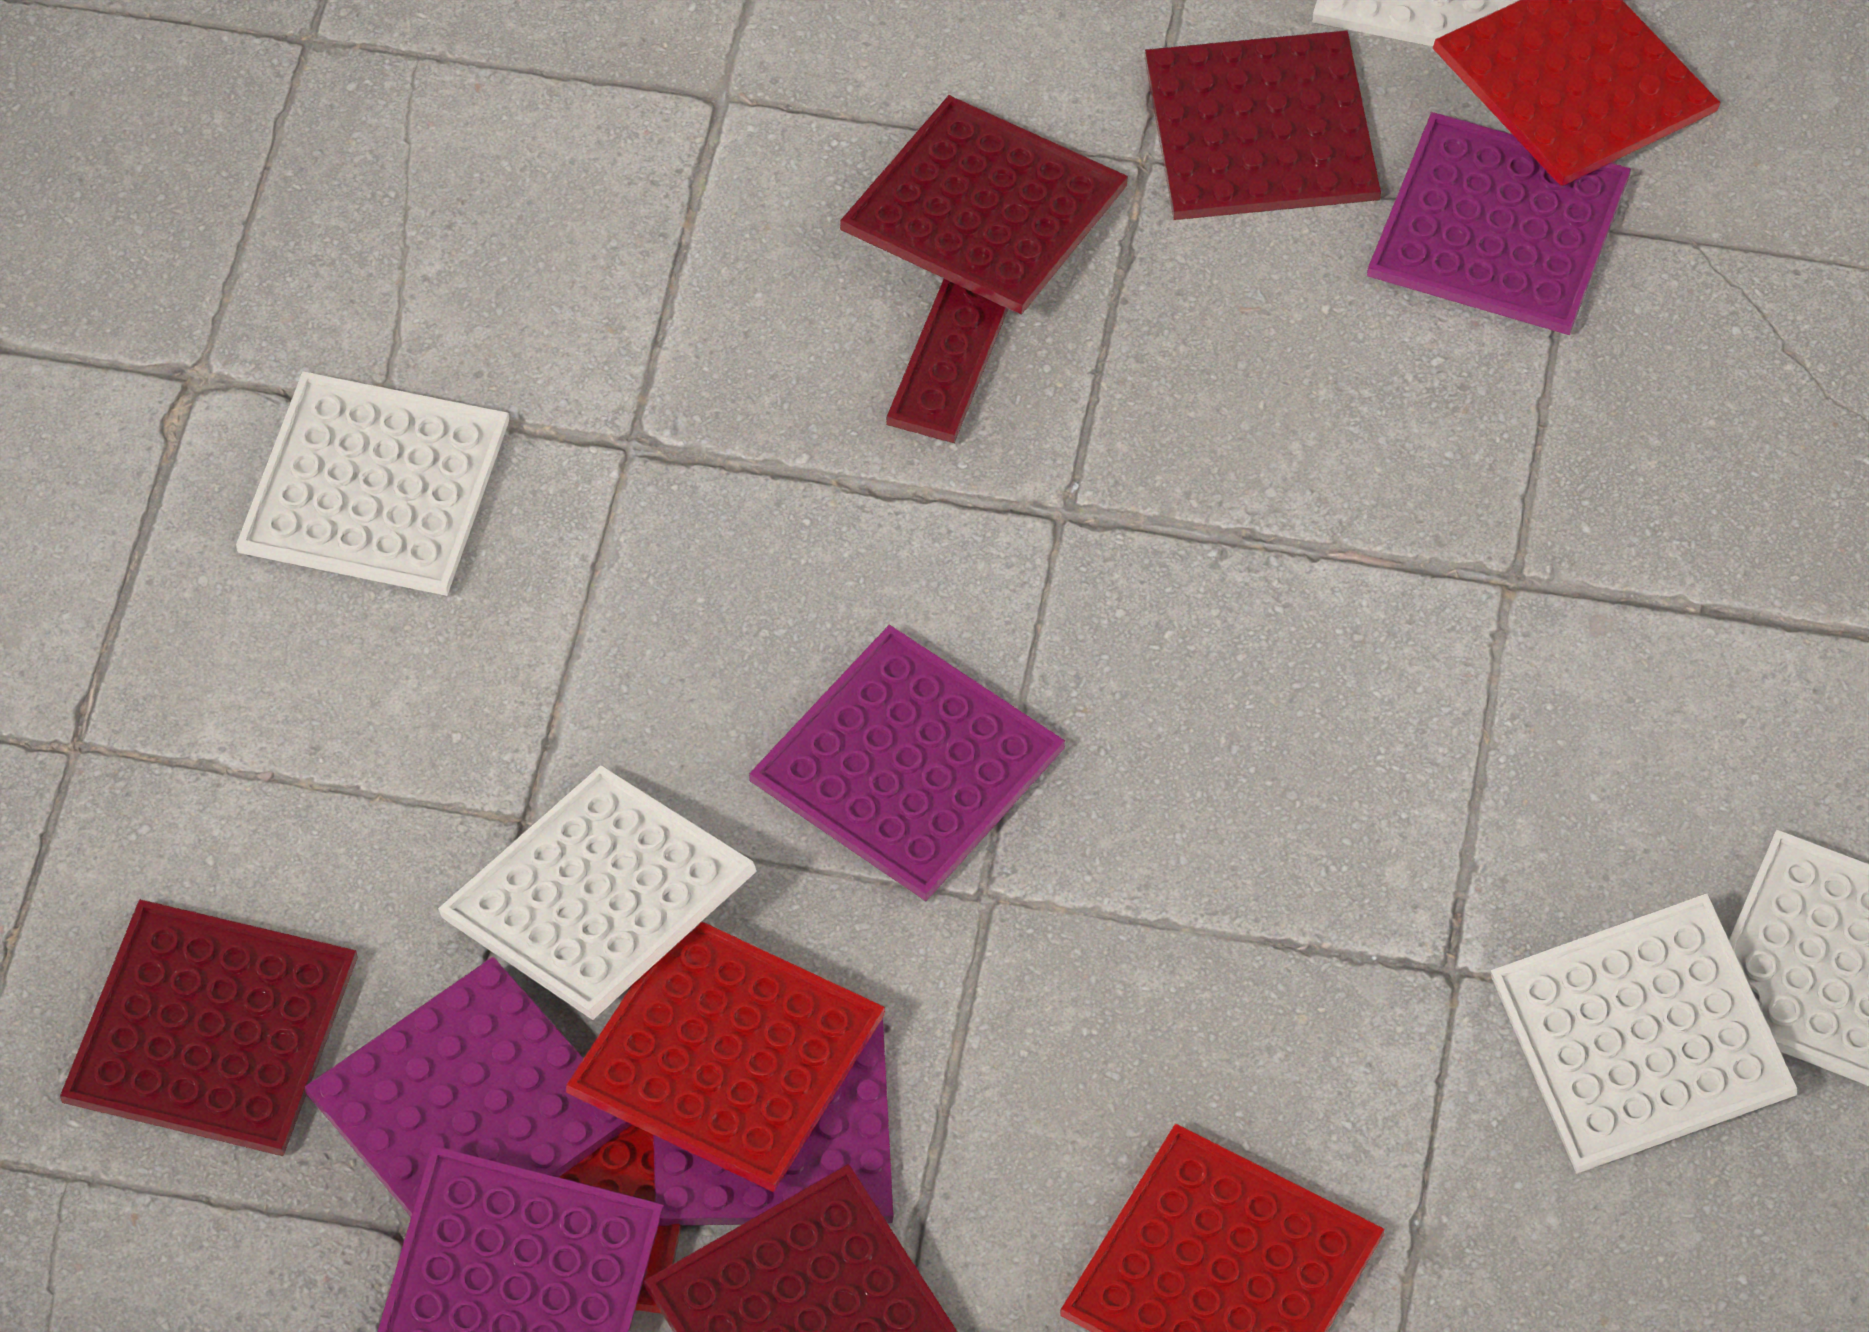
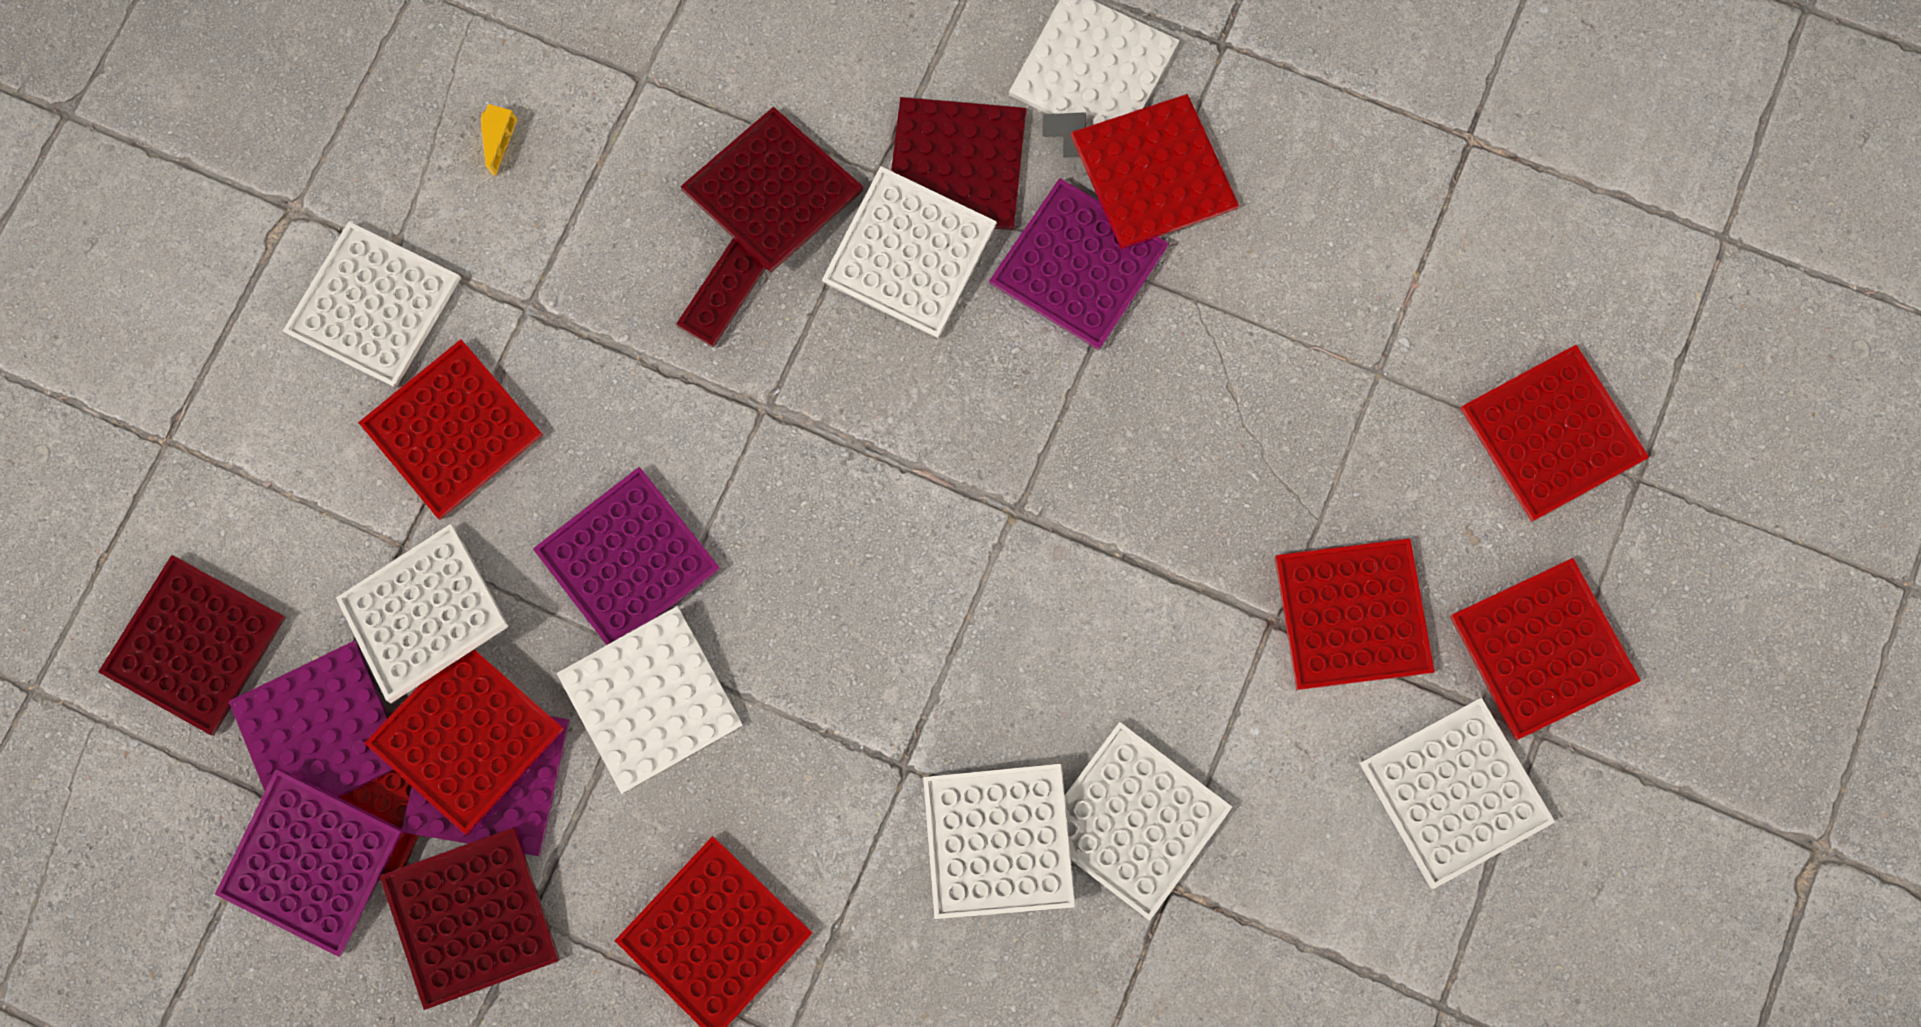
camera: 20 degrees right, 20 degrees up
(509, 207) = (497, 129): none -> yellow slope
(558, 634) = (450, 429): none -> red plate
(1009, 951) = (649, 699): none -> white plate
(1230, 250) = (909, 252): none -> white plate
(1416, 42) = (1063, 125): none -> dark grey tile

